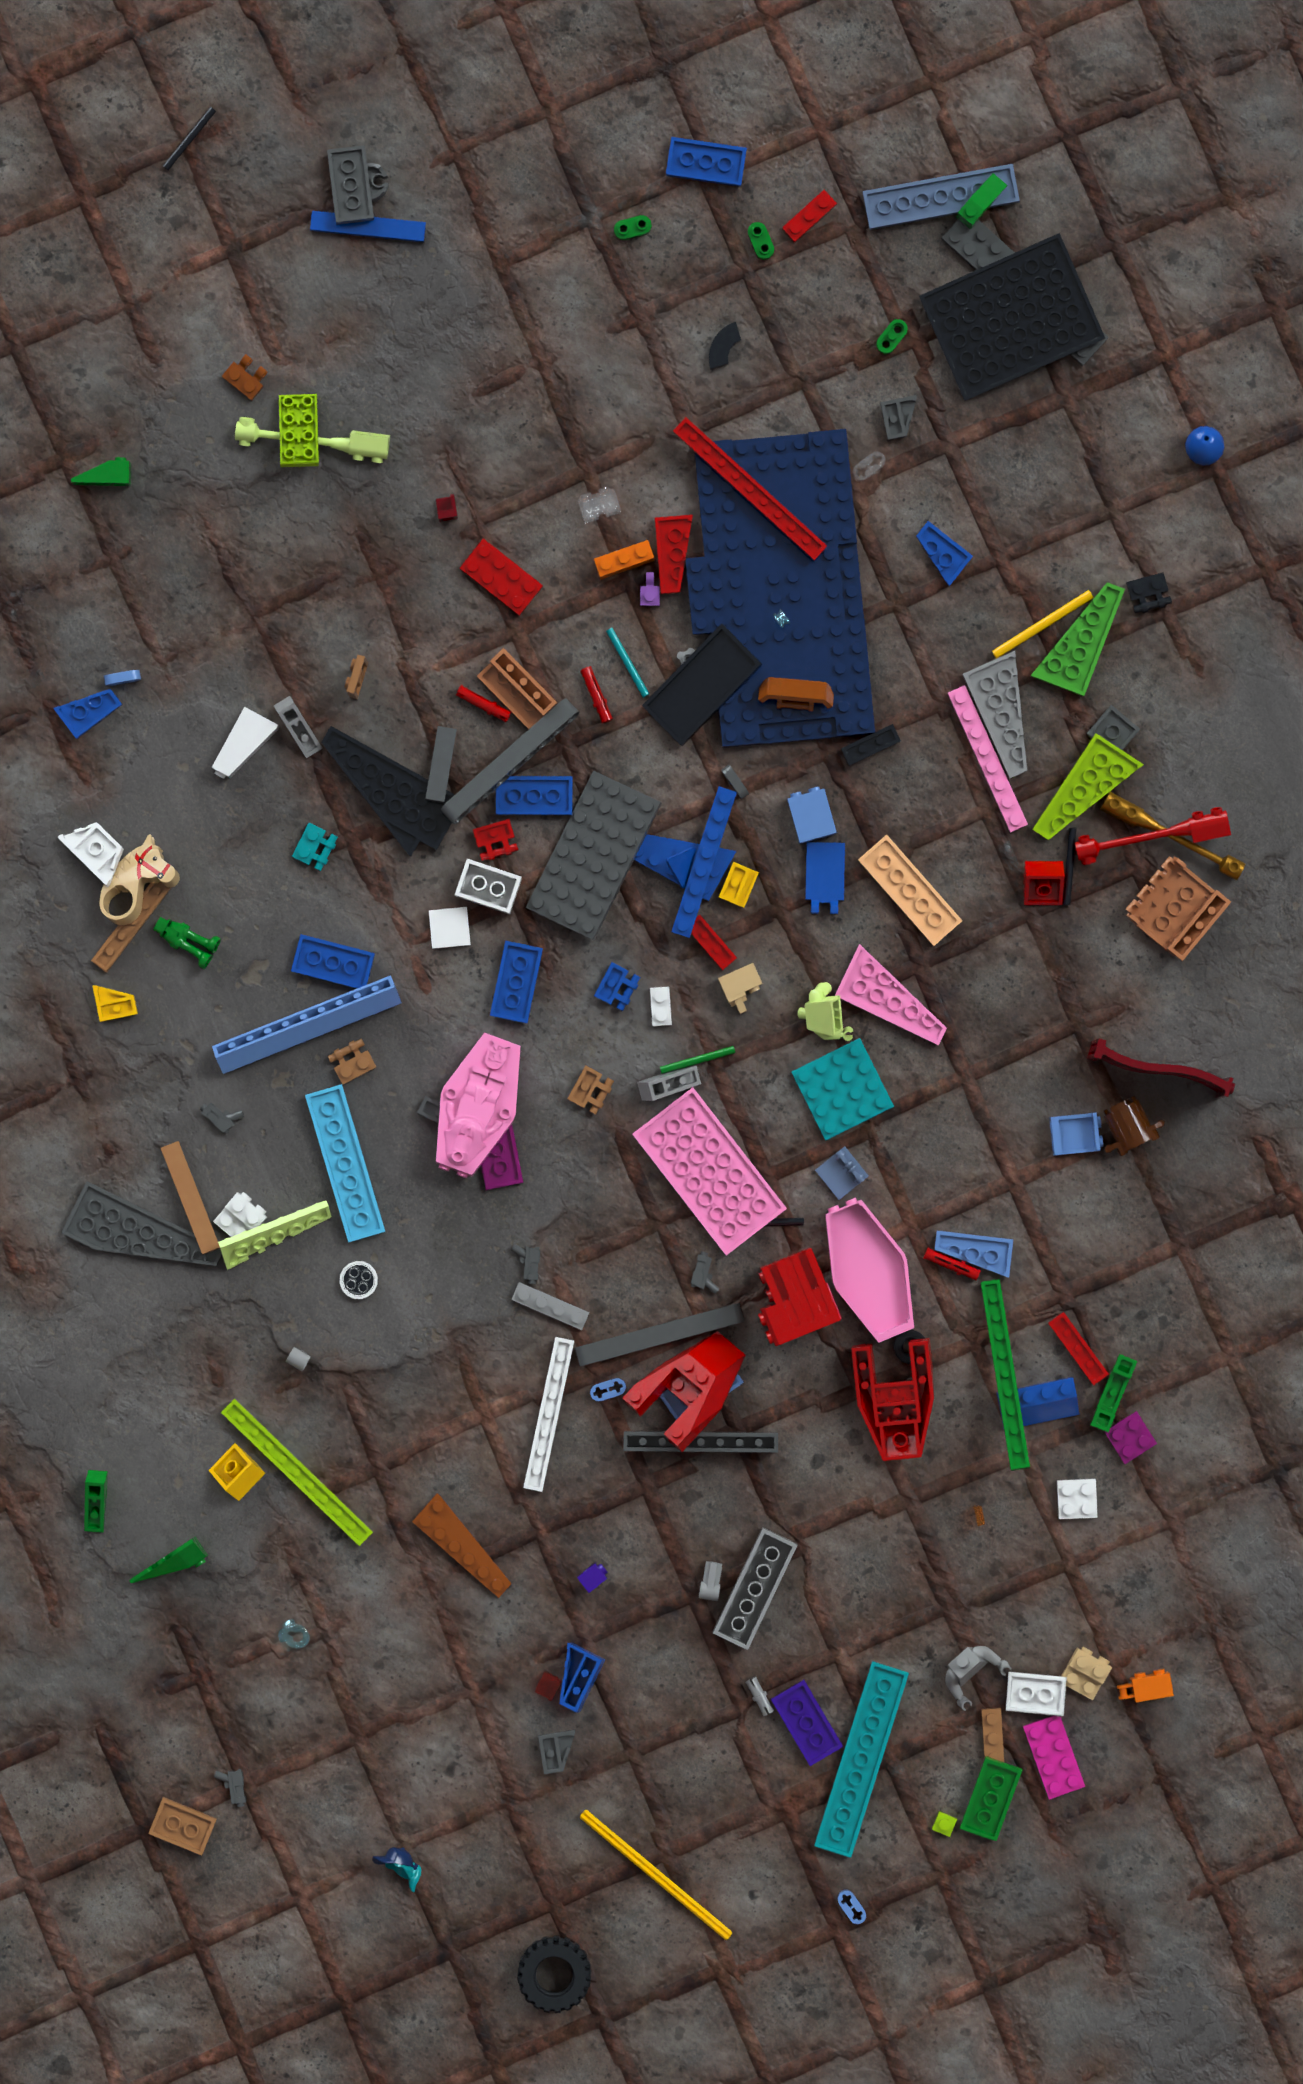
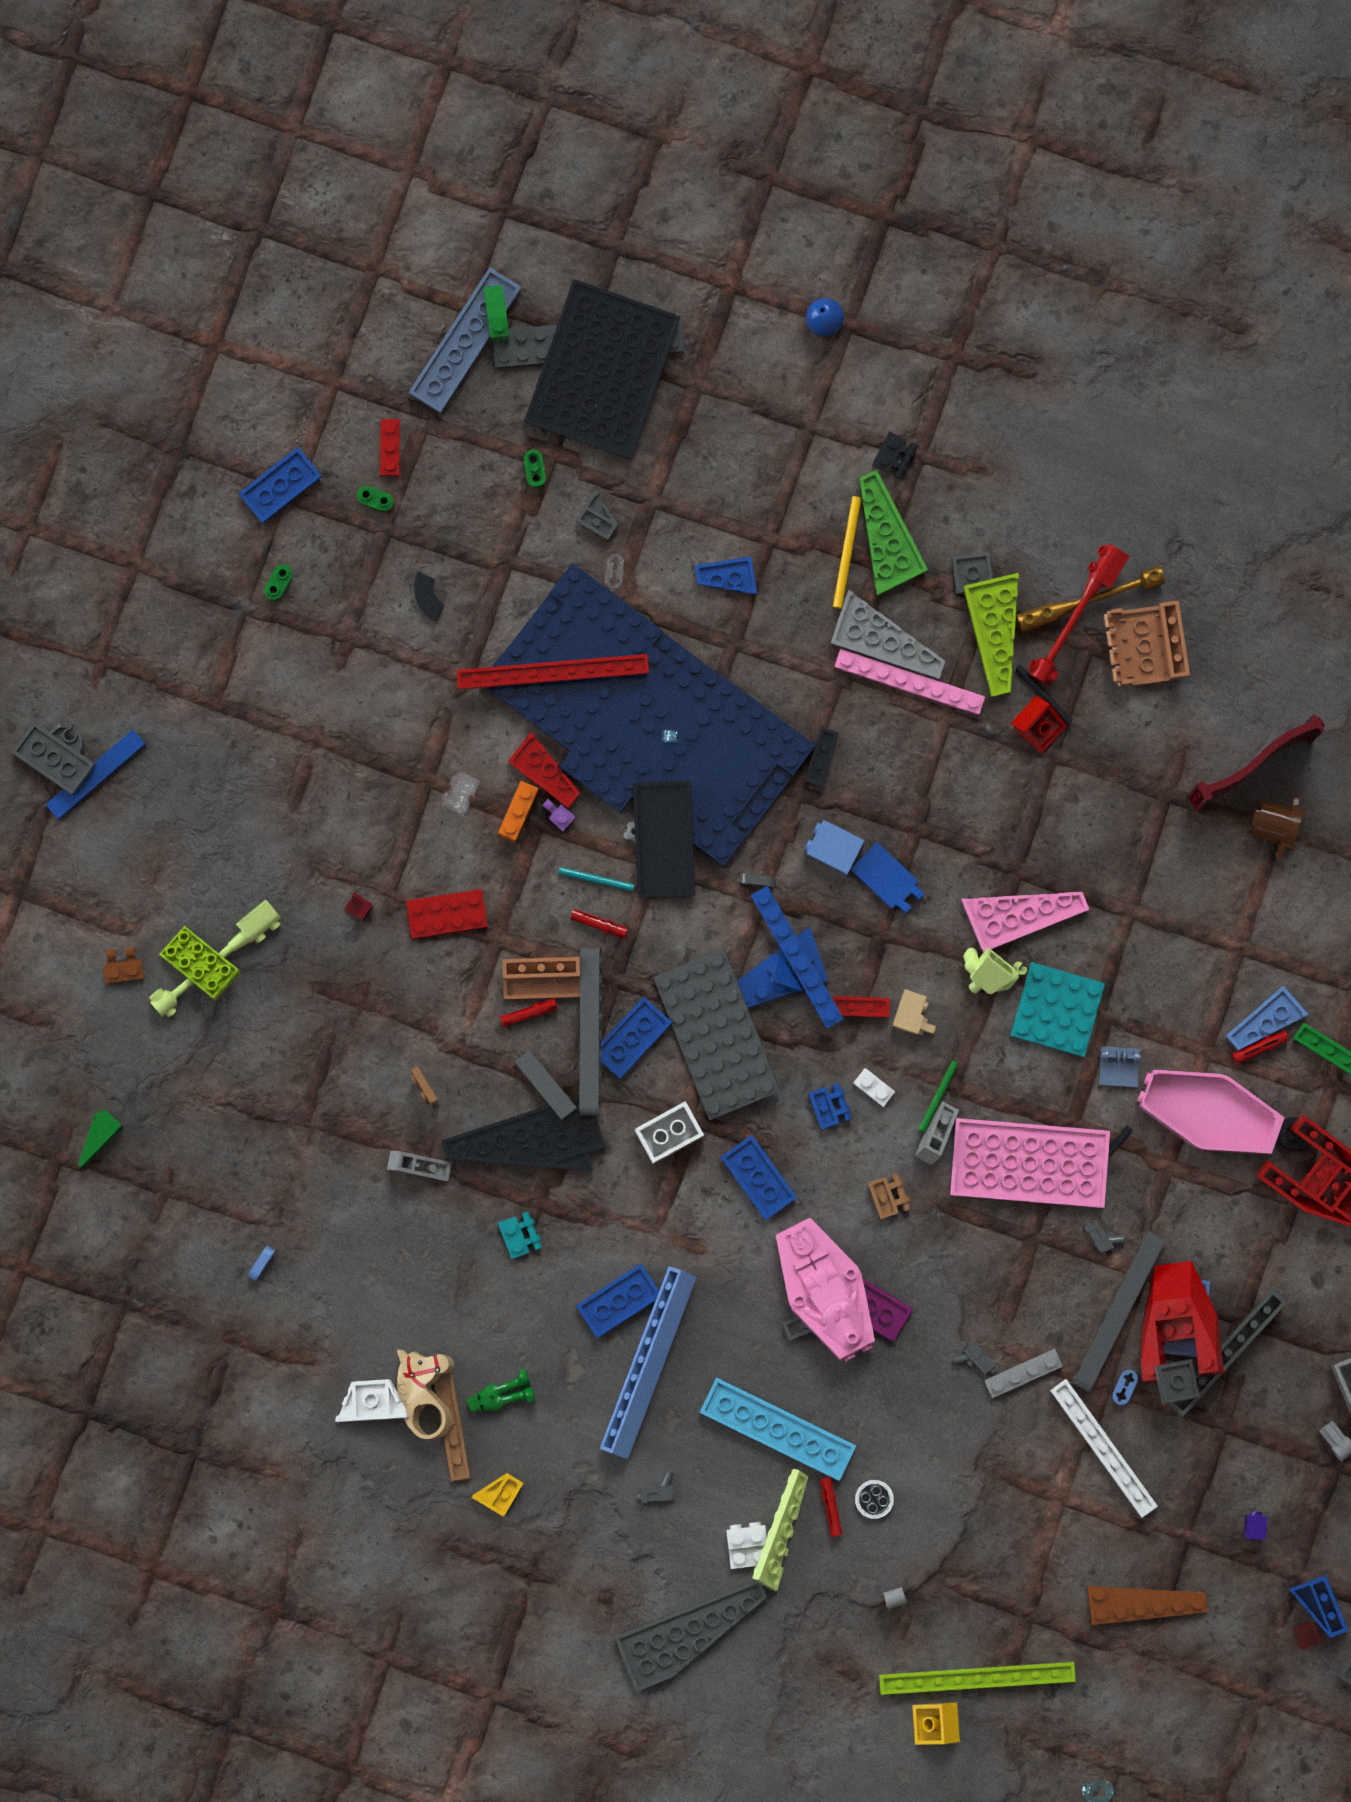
camera: 55 degrees left, 5 degrees down
(87, 712) = (263, 1312): blue wing -> none
(190, 1198) = (698, 1569): medium nougat tile -> none
(245, 739) = (392, 1213): white slope -> none
(327, 1249) = (831, 1507): none -> red pin
(354, 1067) = (711, 1357): medium nougat plate -> none
(449, 927) = (672, 1190): white tile -> none
(493, 834) = (632, 1094): red plate -> none
(644, 1423) = (1177, 1381): none -> dark grey tile
(738, 884) = (836, 947): yellow plate -> none
(796, 691) = (734, 775): dark orange piece -> none
(799, 1298) = (1186, 1181): red piece -> none
(910, 890) = (955, 826): light nougat plate -> none
(1075, 1133) = (1245, 869): medium blue panel -> none

